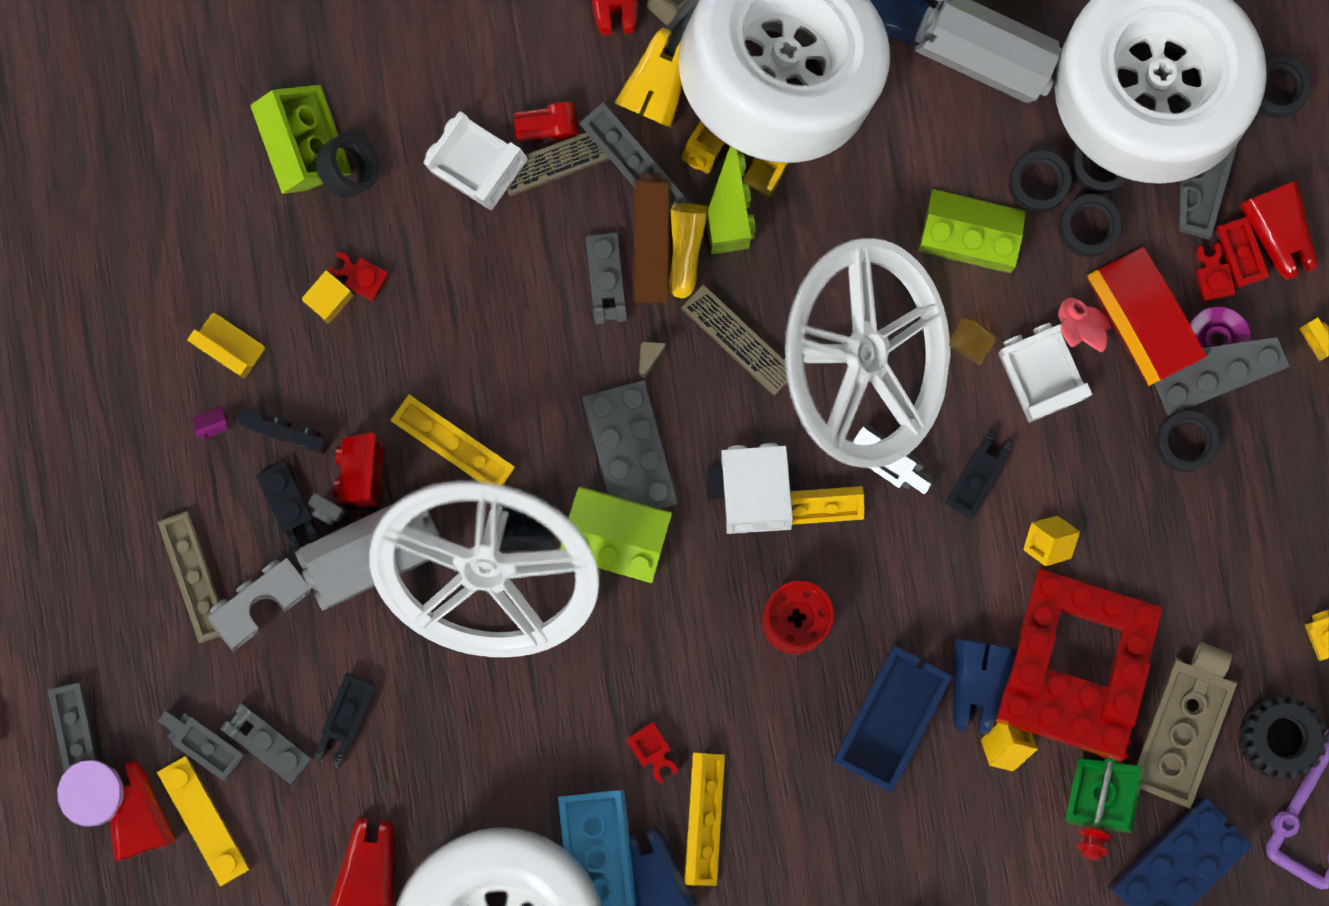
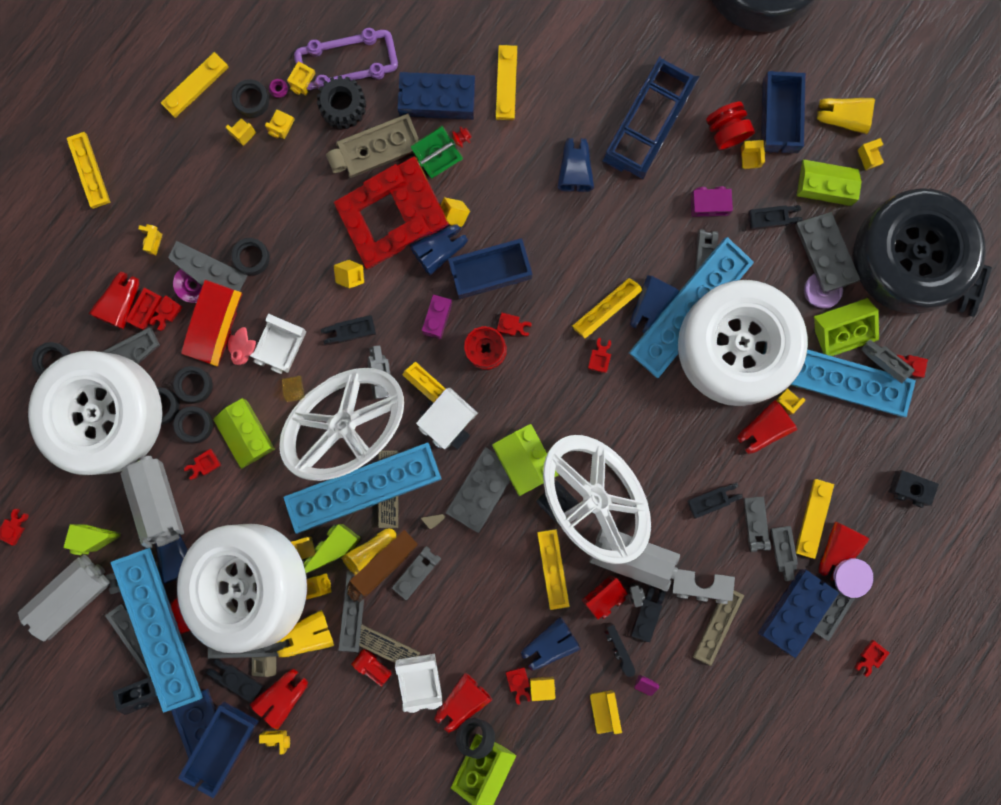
camera: 135 degrees left, 0 degrees up
(115, 686) = (798, 613): none -> dark blue piece
(366, 357) = (551, 645): none -> dark blue piece
(402, 190) = (462, 703): none -> red piece
(759, 324) = (362, 488): none -> dark azure plate
(799, 679) = (510, 324): none -> red plate
(893, 597) = (437, 317): none -> magenta brick
(978, 153) = (205, 463): none -> red plate

